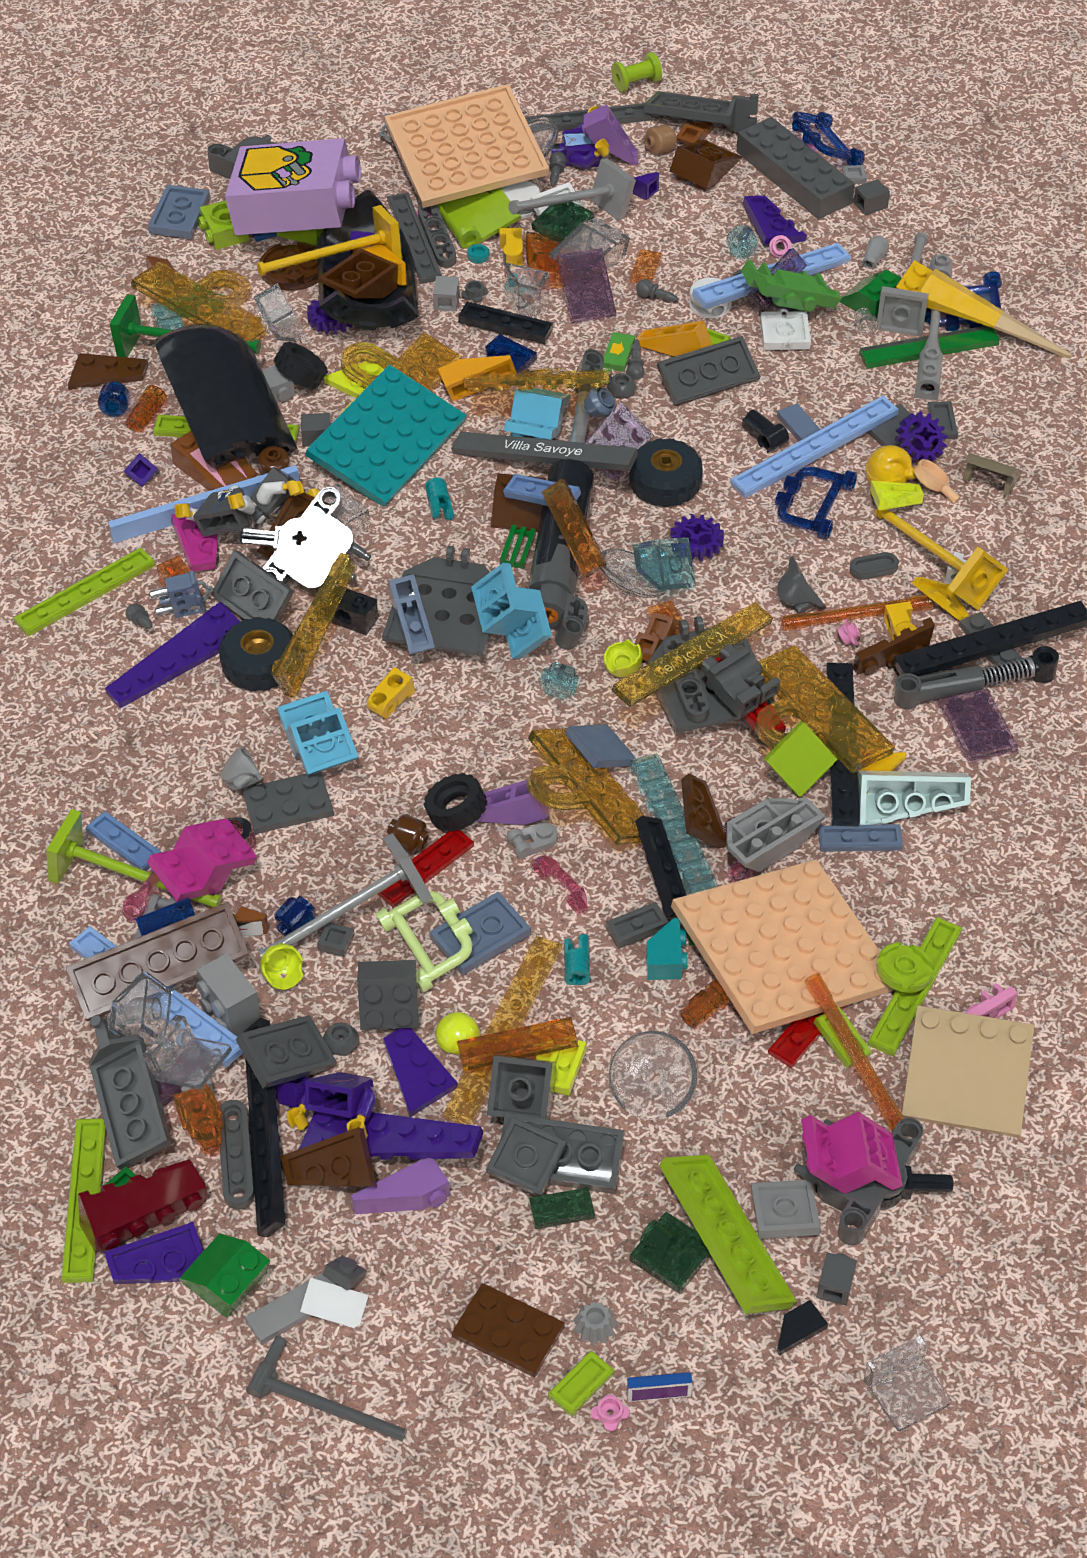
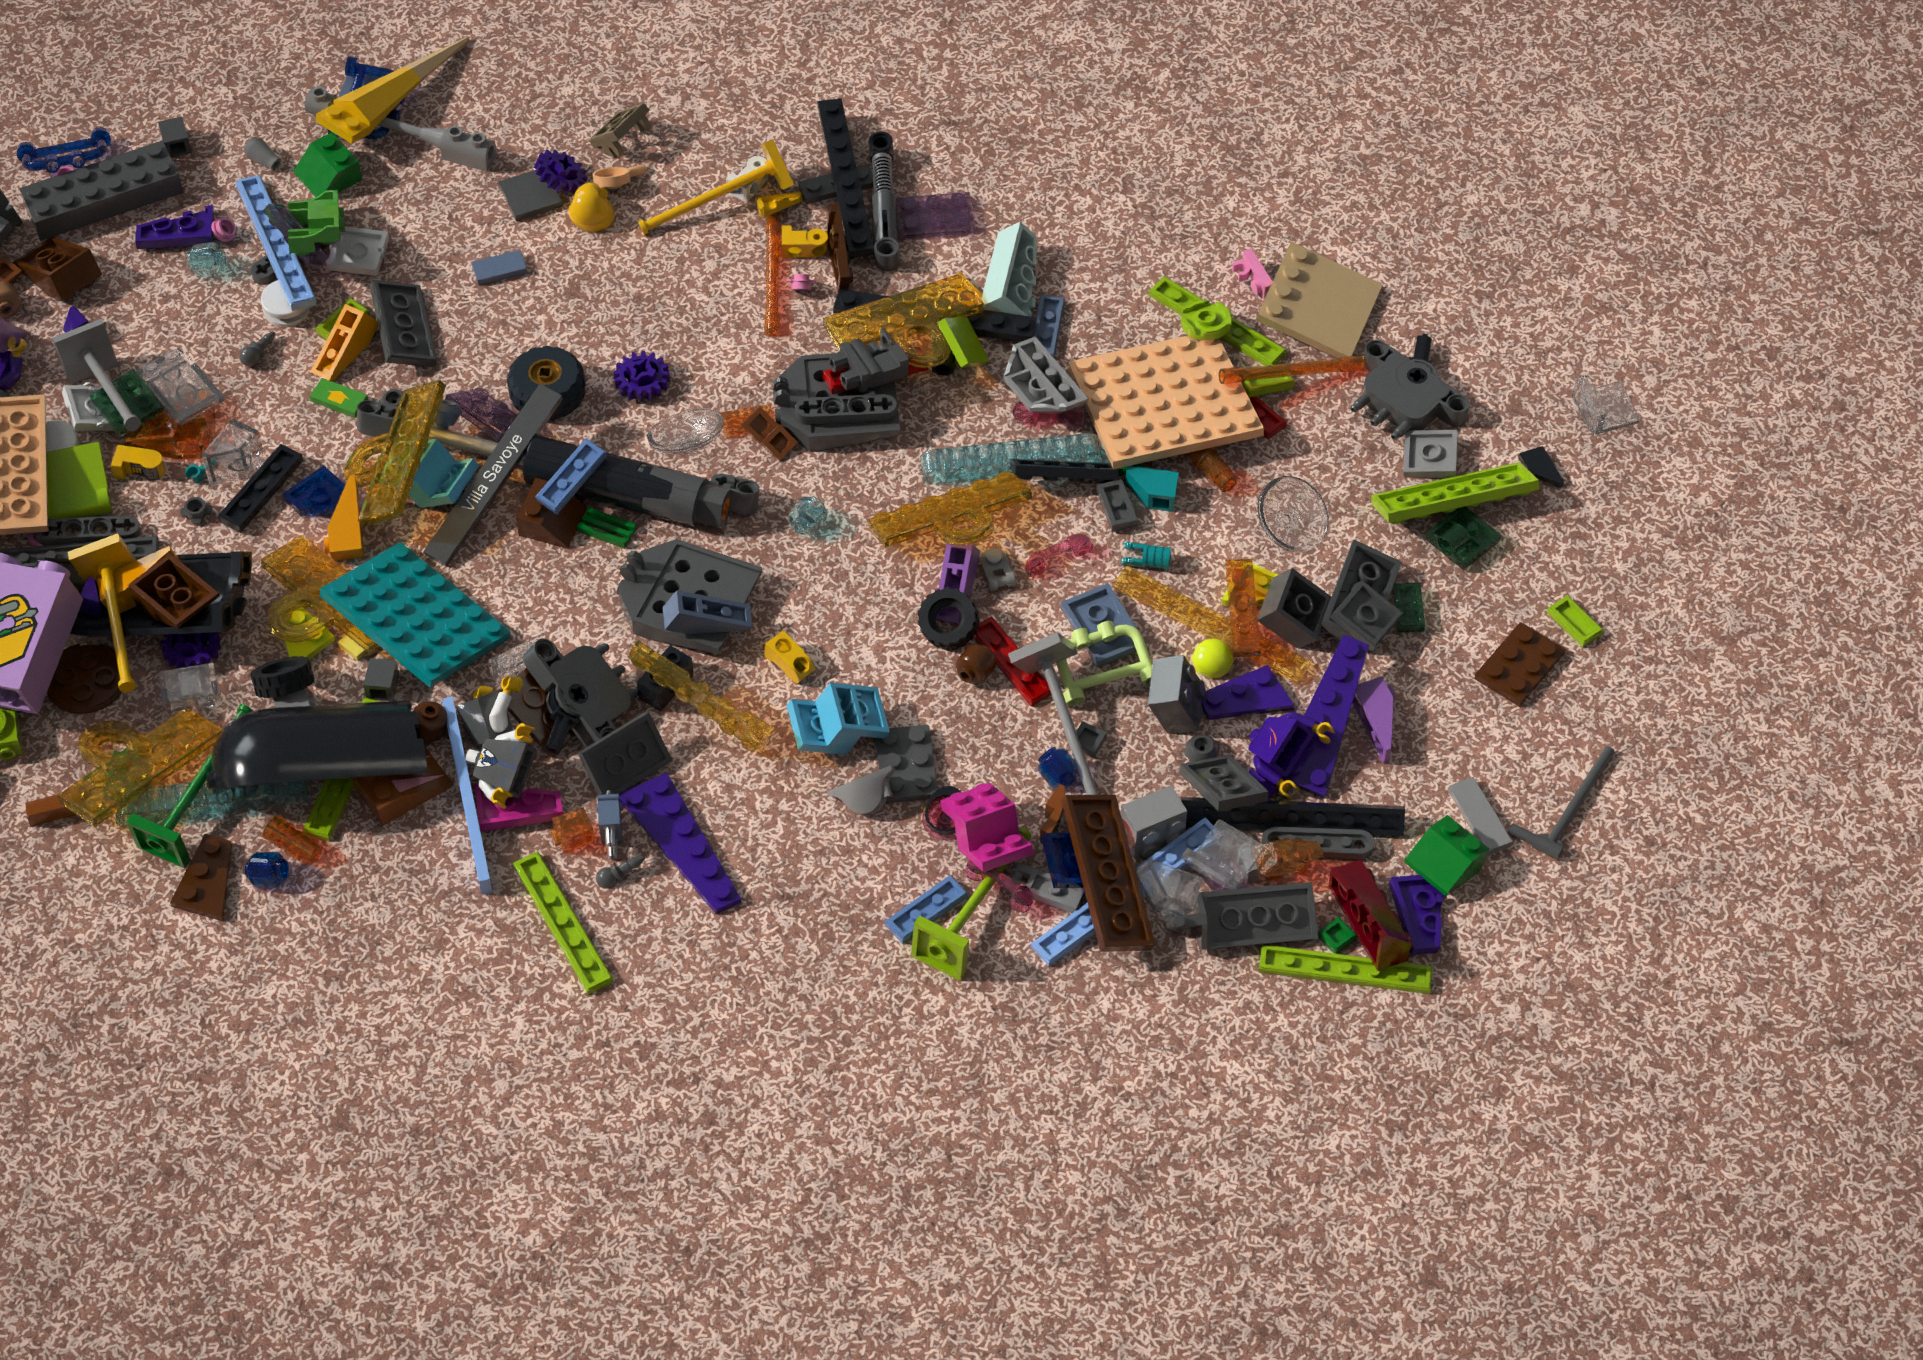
camera: 80 degrees left, 5 degrees up
(141, 470) = (389, 854): dark purple slope -> none
(251, 650) = (709, 763): black wheel -> none
(279, 960) = (1117, 783): neon yellow hair -> none
(332, 1162) = (1349, 759): reddish brown wing -> none
(334, 1303) = (1482, 783): white sticker -> none
(344, 1272) = (1453, 771): dark grey plate -> none
(439, 498) = (522, 583): teal hinge -> none
(446, 293) = (195, 533): light grey brick -> none
(478, 253) = (130, 499): teal tile -> none
(511, 611) = (728, 528): medium azure bracket -> none
(574, 528) = (640, 452): clear orange plate -> none
(586, 285) = (241, 399): clear purple plate -> none
(595, 1323) = (1520, 603): light grey piece -> none
(600, 745) = (902, 495): sand blue tile -> none
(613, 1404) = (1604, 598): bright pink plate -> none
(623, 658) = (792, 454): neon yellow hair -> none
(635, 364) = (373, 388): dark grey bar -> none
(646, 266) = (210, 352): clear orange tile -> none
(659, 1387) = (1589, 568): tile -> none
(666, 563) = (678, 402): clear light blue slope -> none
(691, 654) = (823, 393): clear yellow tile -> none
(701, 813) = (997, 433): reddish brown wing -> none
(767, 434) = (511, 292): black piece -> none
(793, 484) = (604, 298): clear blue bar -> none
(795, 590) = (736, 310): dark grey hat -> none
(814, 446) = (539, 260): light blue tile -> none
(836, 1278) = (1503, 430): dark grey brick -> none
(851, 1152) = (1409, 383): dark pink bracket -> none
(855, 173) = (123, 144): light grey tile -> none
(869, 326) = (367, 183): clear piece -> none
(874, 566) = (713, 249): dark grey tile -> none
(895, 494) = (630, 210): neon yellow wing -> none
(902, 309) = (374, 146): light grey tile -> none
(910, 349) = (417, 150): green tile -> none
(946, 417) = (523, 154): dark grey tile -> none

